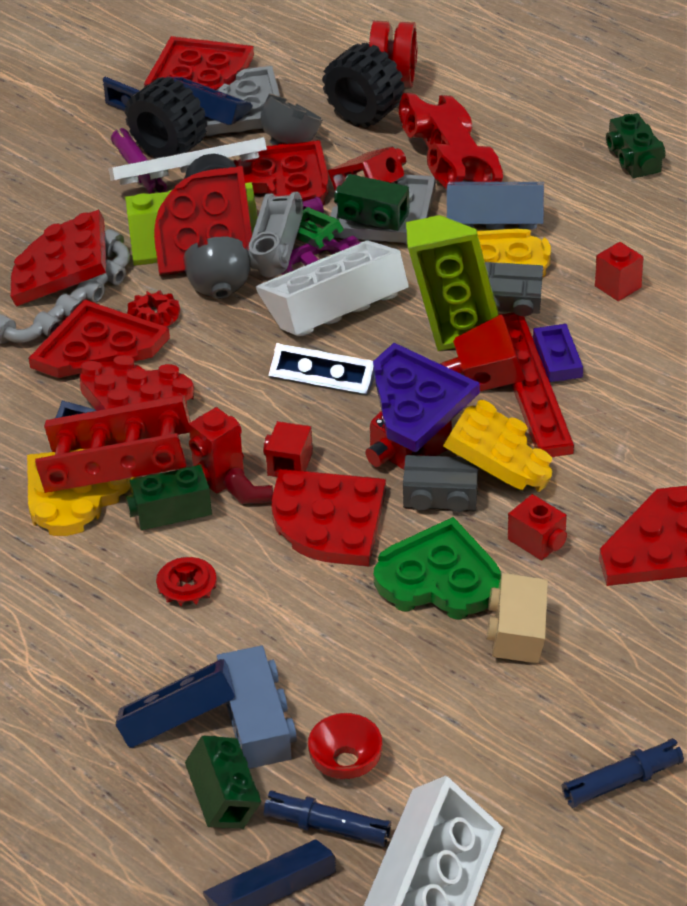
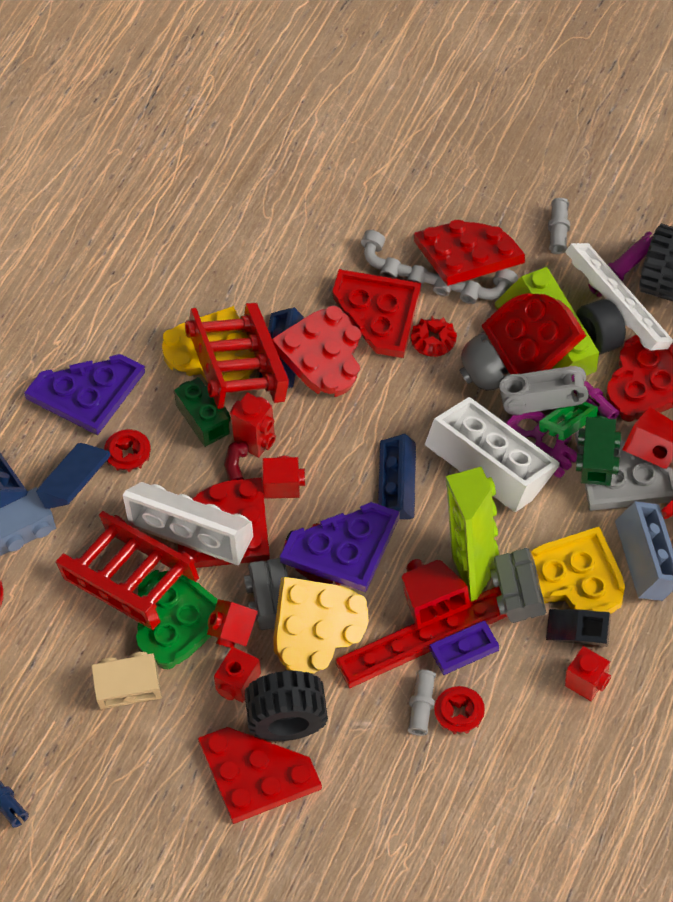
camera: 75 degrees right, 15 degrees up
(63, 195) = (559, 225): none -> light grey pin
(82, 604) = (87, 391): none -> dark purple plate
(216, 617) = (71, 475): none -> dark blue slope
(333, 517) = (188, 522): none -> white slope
(389, 614) = (121, 595): none -> red fence
(475, 512) = (231, 623): none -> red brick
(567, 262) = (579, 626): none -> black slope
(603, 476) = (286, 705): none -> black tyre
(614, 394) = (421, 702): none -> light grey pin
(630, 362) = (458, 697): none -> red gear

